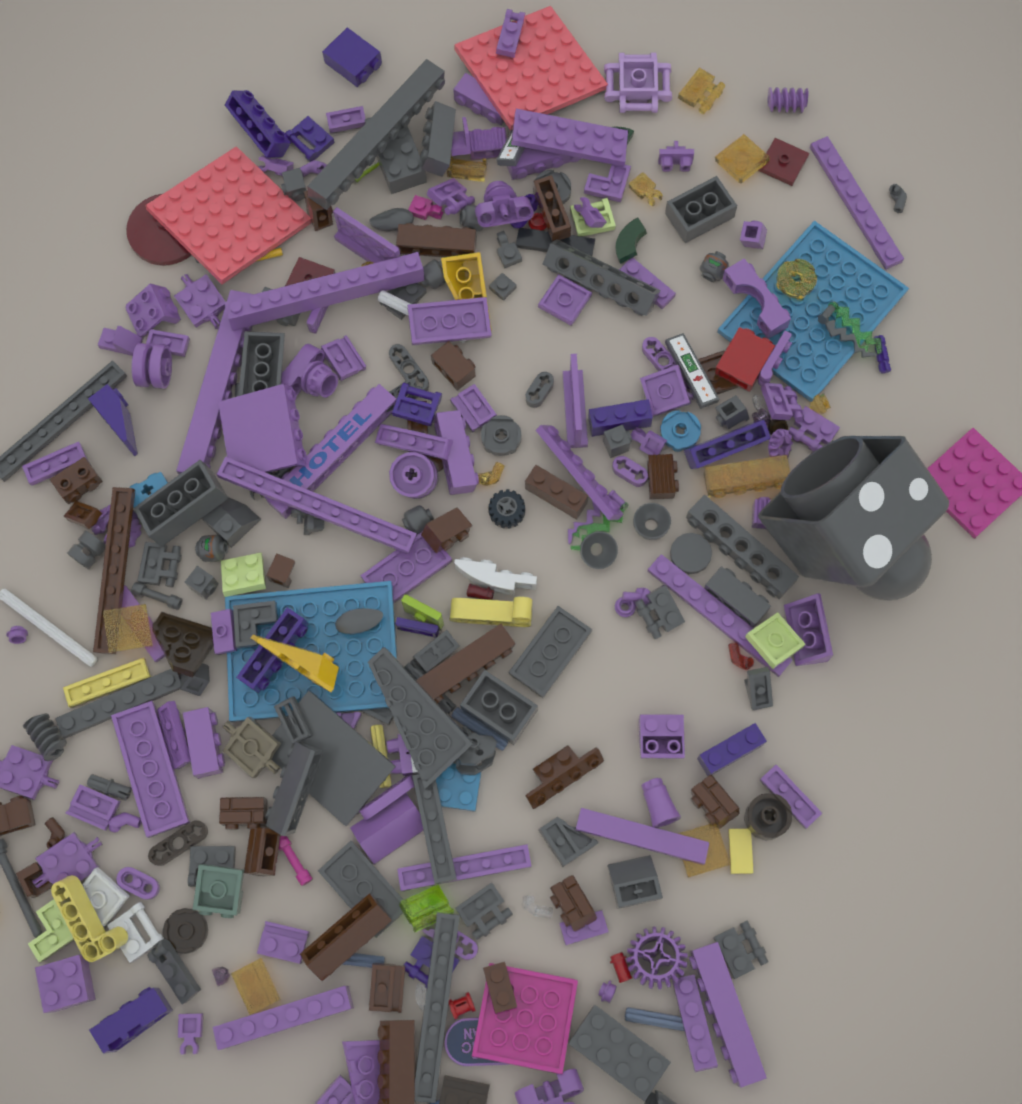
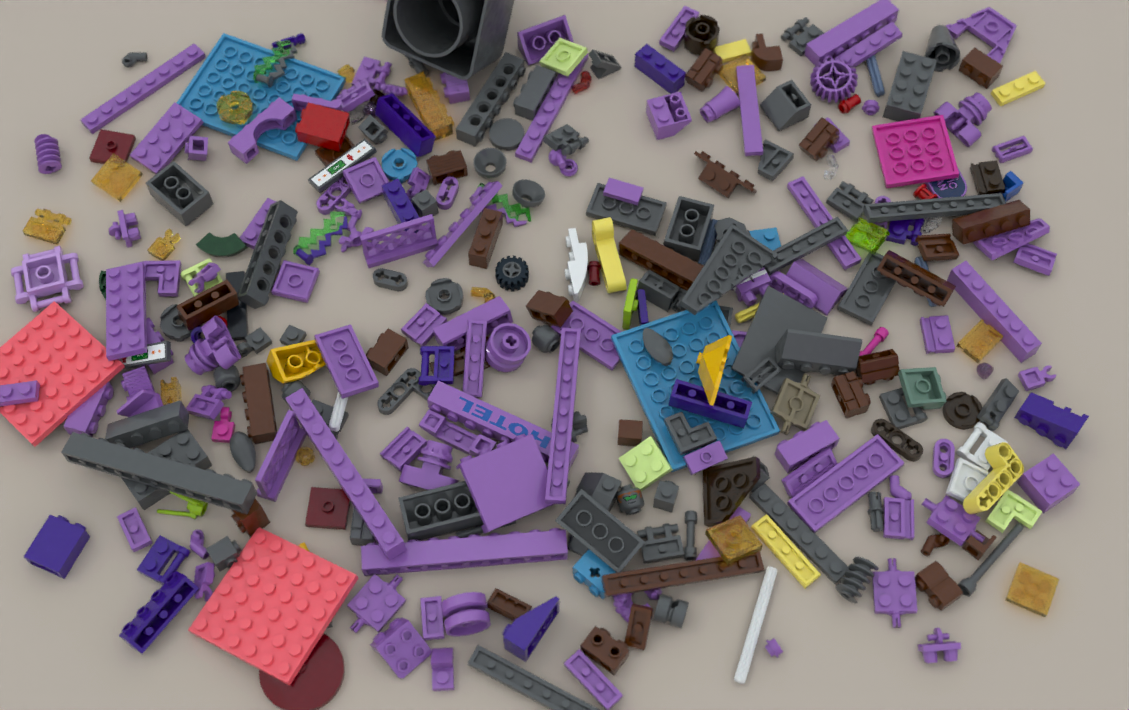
camera: 110 degrees left, 10 degrees down
(151, 409) = (507, 605): none -> reddish brown plate
(328, 419) = (454, 435): none -> medium lavender slope
(500, 987) = (902, 169): reddish brown plate -> none
(569, 651) = (623, 191): none -> medium lavender tile
(614, 338) = (326, 231): none -> piece
(638, 368) = (354, 238): none -> medium lavender piece
(714, 266) = (234, 173): dark grey head -> none
(715, 888) = (766, 57): none -> reddish brown brick
(778, 210) = (166, 138): none -> medium lavender plate

